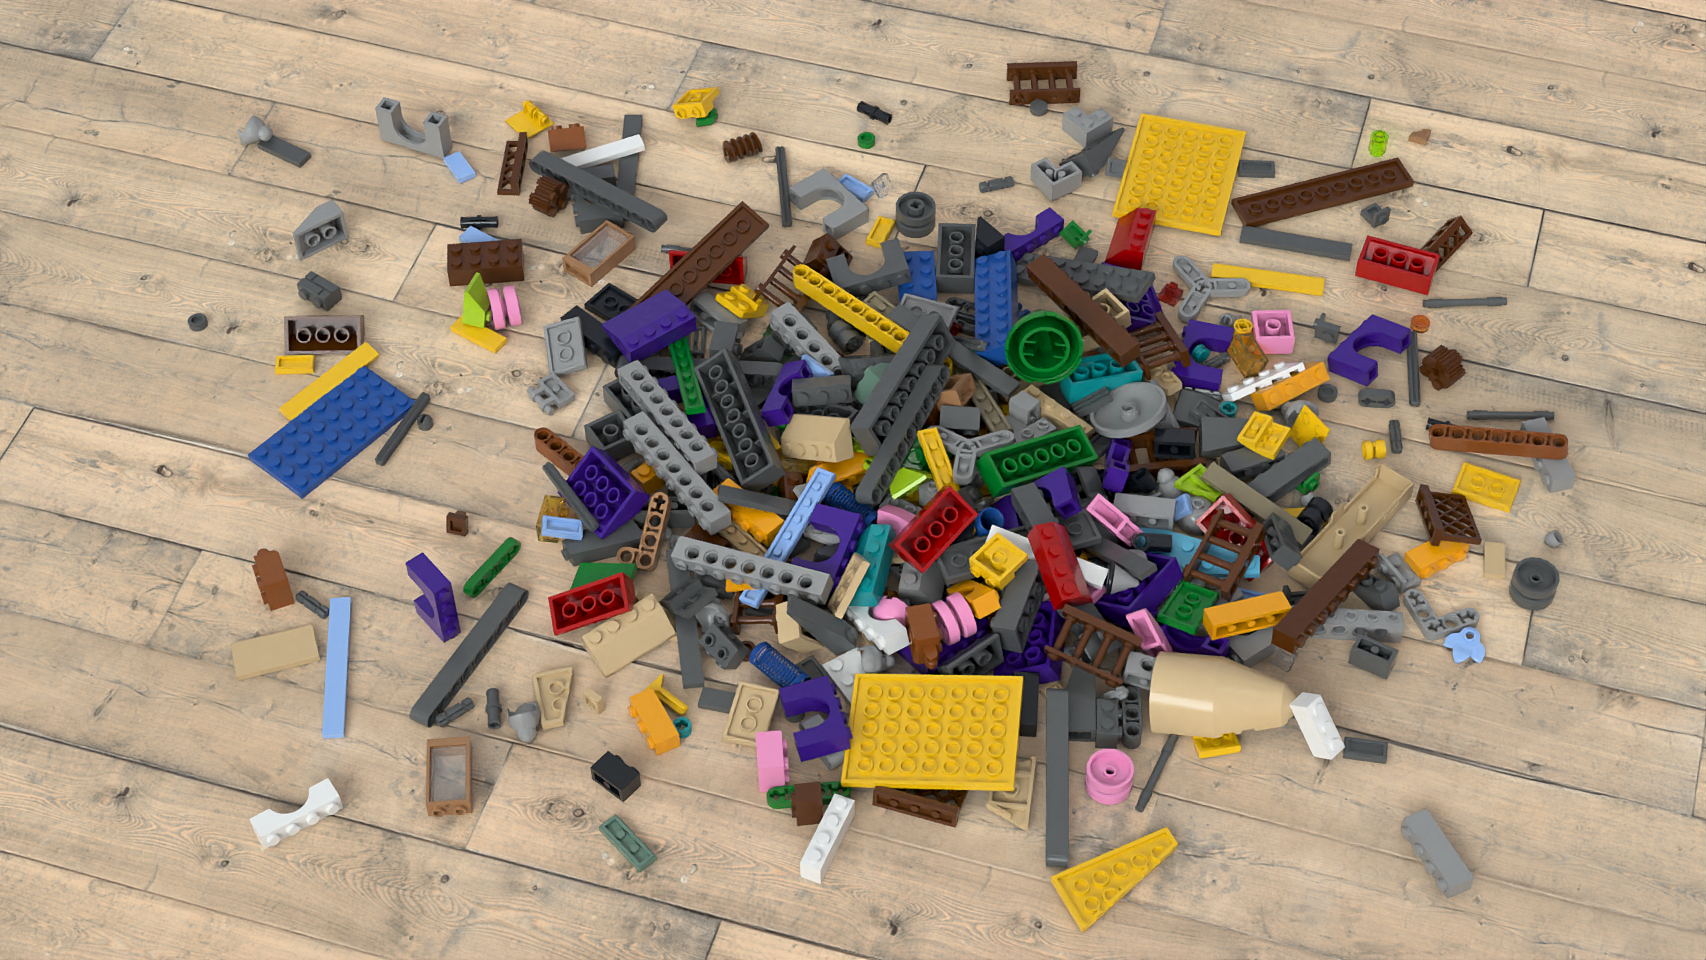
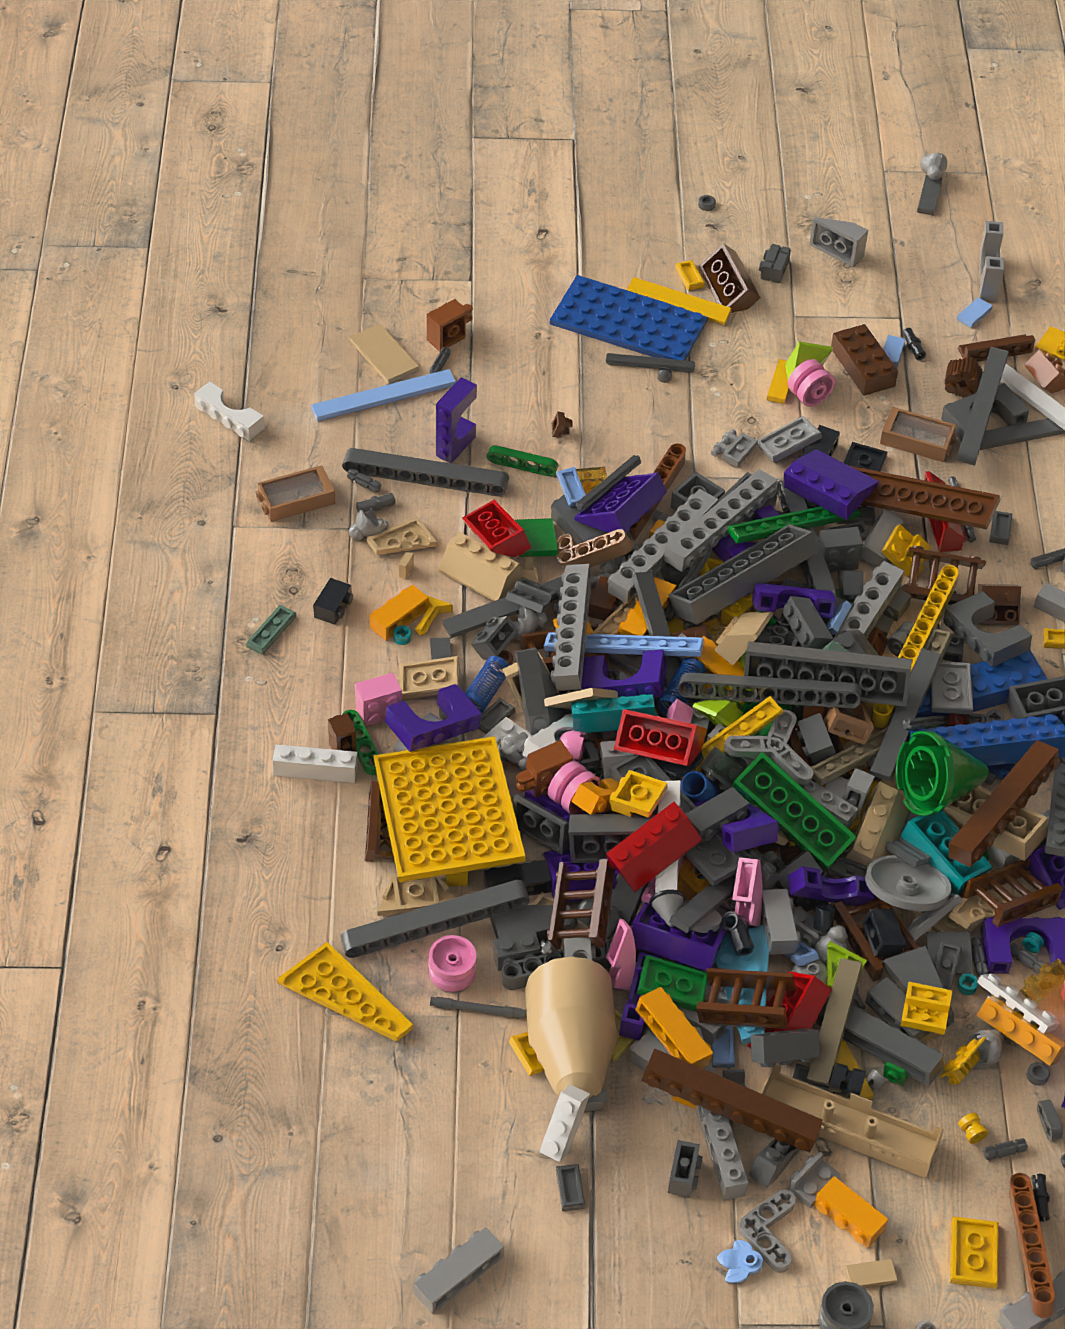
camera: 70 degrees right, 0 degrees up
(1433, 518) = (892, 1192): reddish brown fence -> none

